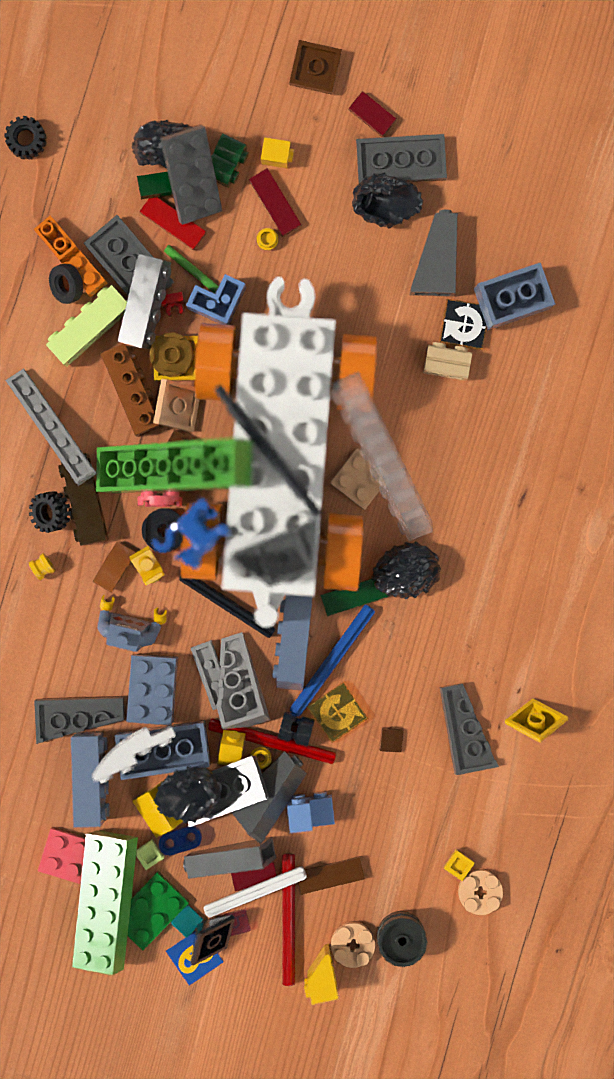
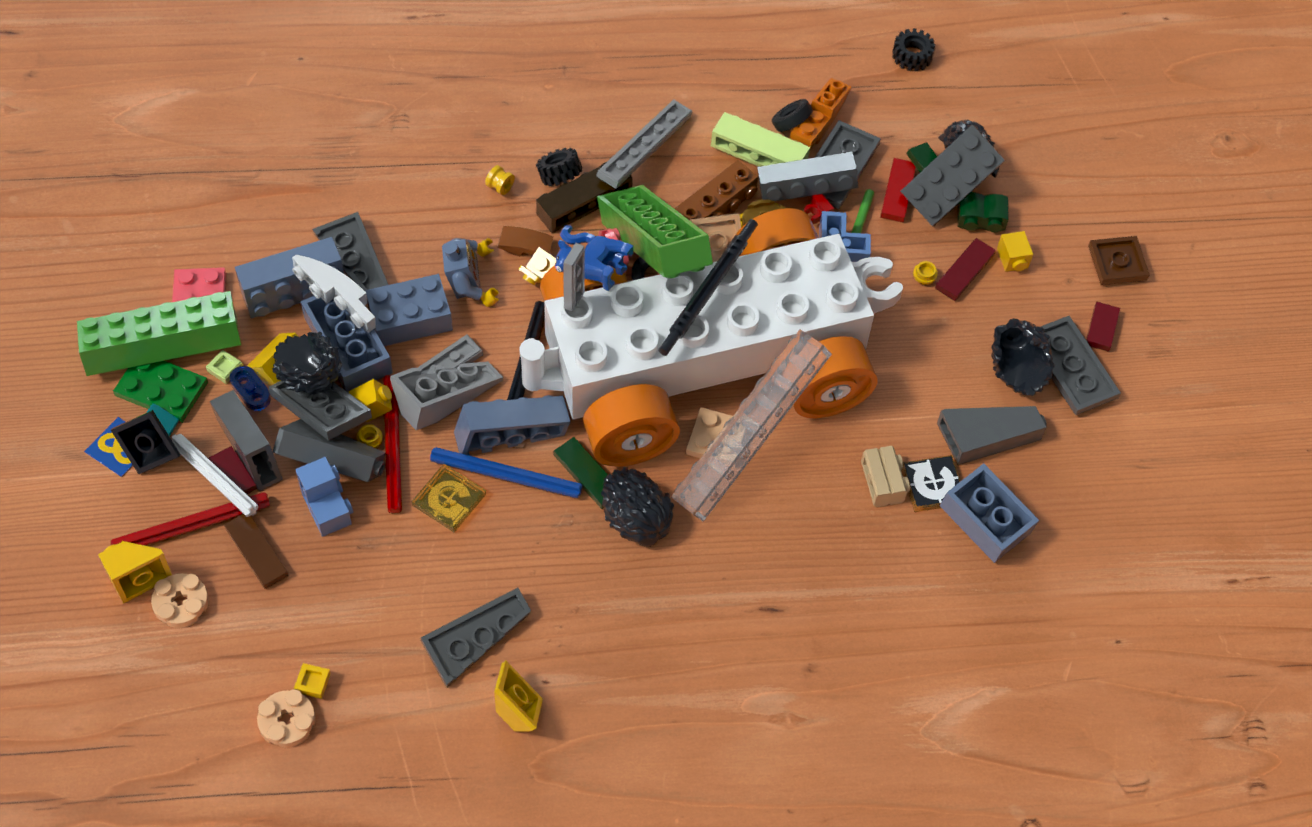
camera: 60 degrees right, 30 degrees down
(241, 922) = (172, 474): clear pink tile -> none
(281, 555) = (605, 331): dark grey wing -> none
(303, 731) = (415, 456): black wheel -> none
(391, 740) = (436, 560): reddish brown slope -> none
(401, 952) = (202, 641): pearl dark grey wheel -> none

